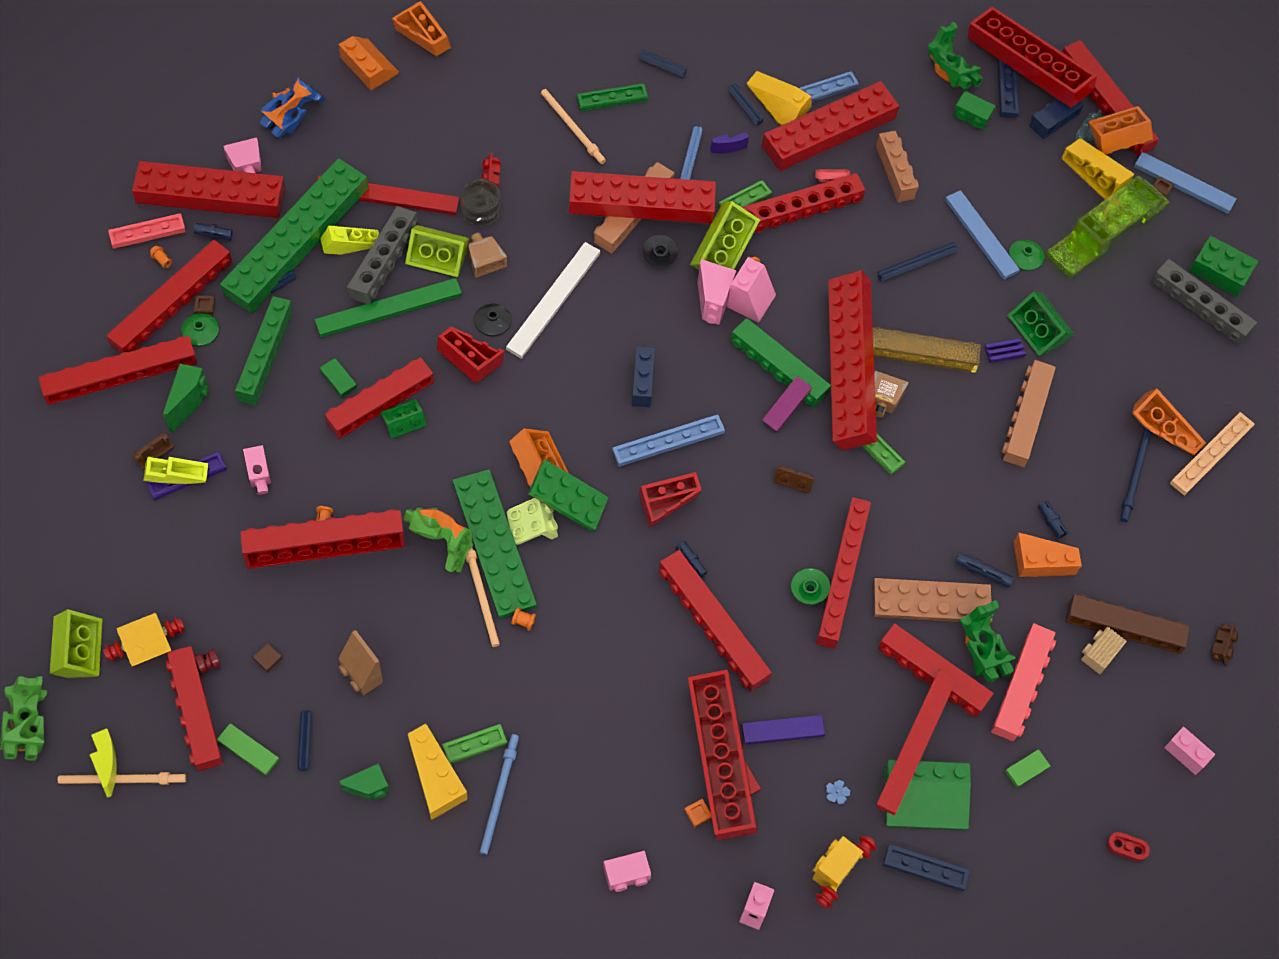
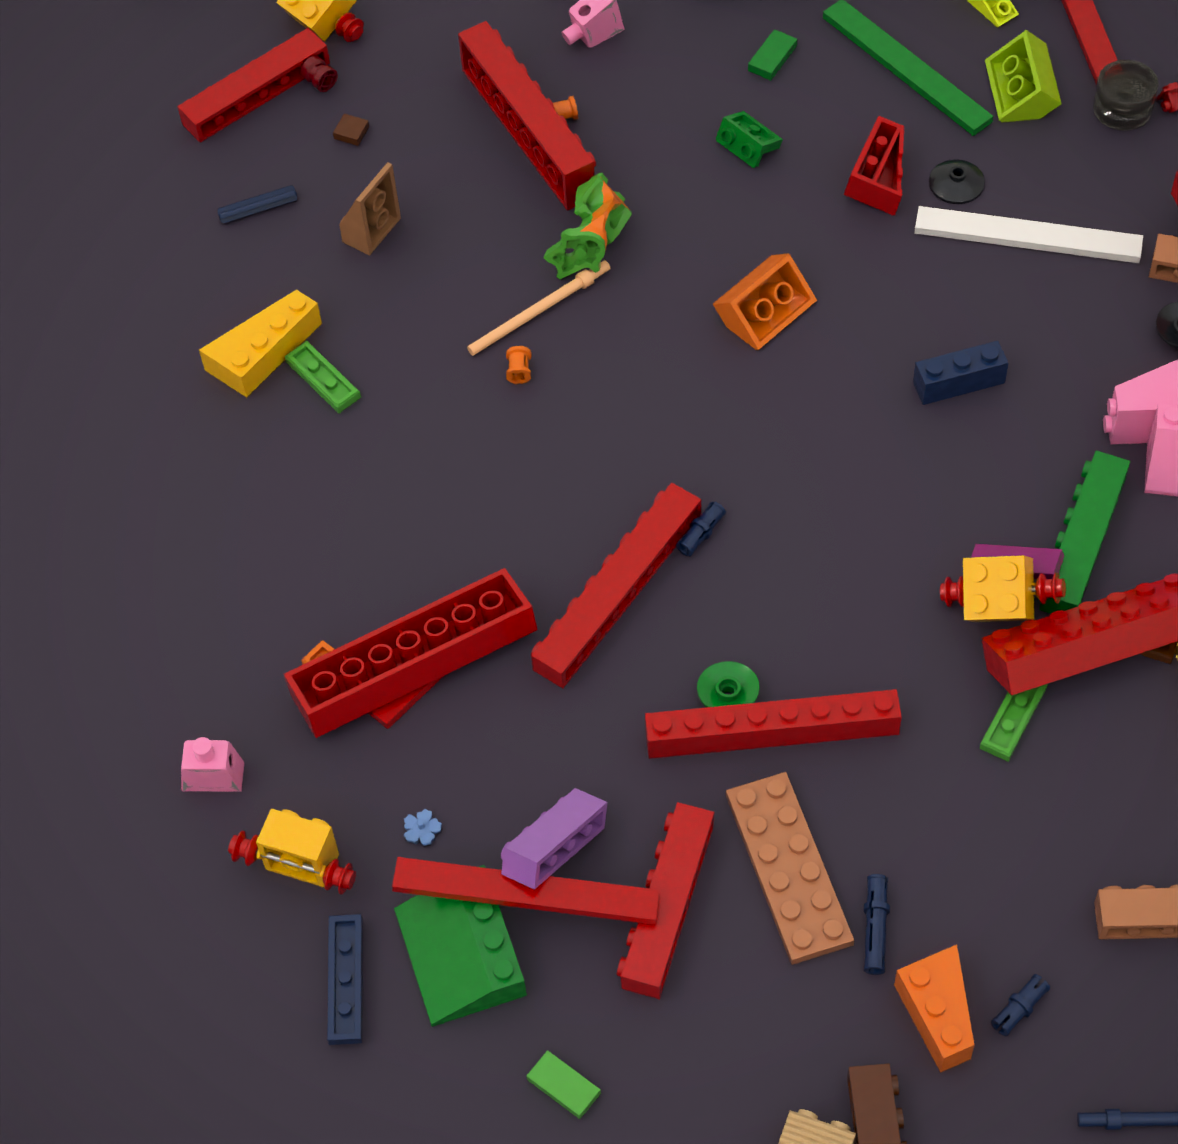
camera: 80 degrees right, 5 degrees down
(105, 760) = (152, 28): neon yellow slope -> none
(163, 778) = (156, 90): light nougat bar -> none
(248, 749) = (224, 156): bright green tile -> none
(366, 784) = (223, 283): green slope -> none
(379, 397) = (764, 101): red brick -> none
(382, 256) = (973, 24): dark grey brick -> none
(485, 255) = (1046, 132): medium nougat torso -> none
(494, 543) = (617, 298): green plate -> none
(509, 756) = (319, 418): medium blue bar -> none
(531, 520) = (670, 327): yellowish green bracket -> none
(568, 495) = (718, 343): green plate -> none
(627, 871) = (205, 599): bright pink brick -> none
(668, 440) = (877, 439): medium blue plate -> none
(668, 496) = (779, 462): red wedge -> none
(783, 729) = (489, 727): dark purple tile -> none
(789, 478) = (898, 603): reddish brown hinge -> none
(809, 418) = (1000, 589): none -> yellow brick
(887, 714) = (553, 838): none -> medium lavender brick
(888, 392) = (1113, 692): medium nougat torso -> none
(985, 656) = (766, 926): green hips -> none
(1023, 683) = (705, 1035): coral brick -> none

